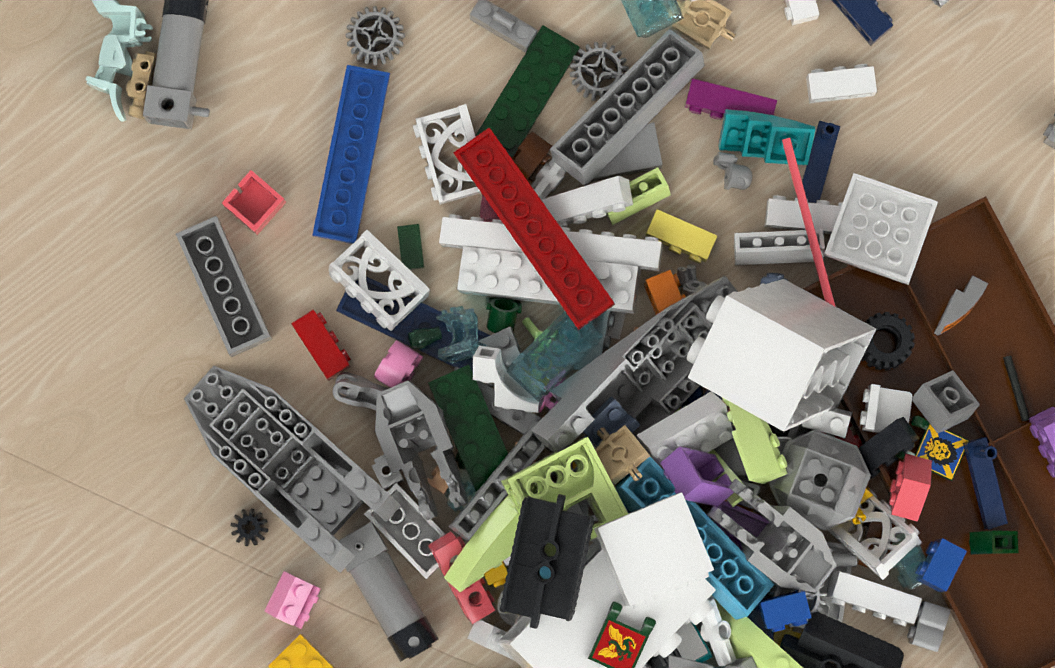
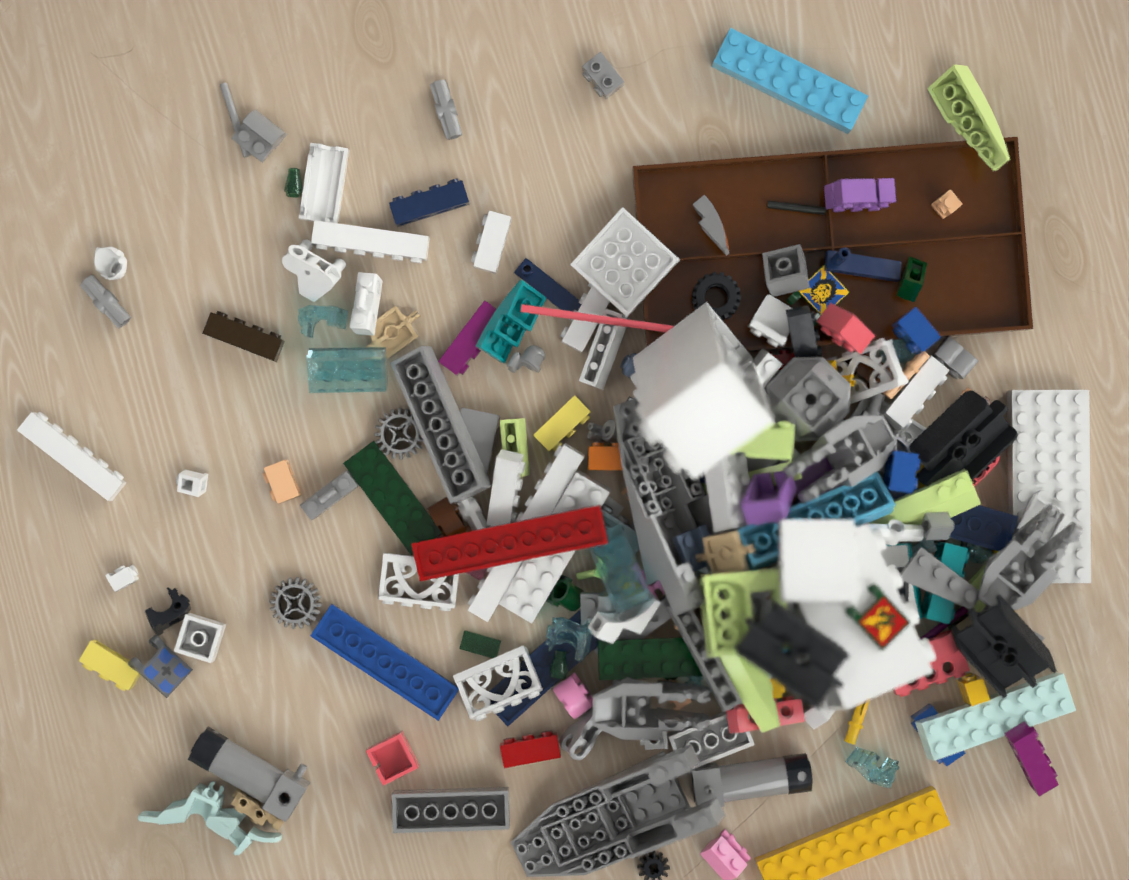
camera: 65 degrees left, 5 degrees up
(896, 580) = (909, 370): none -> light nougat pin

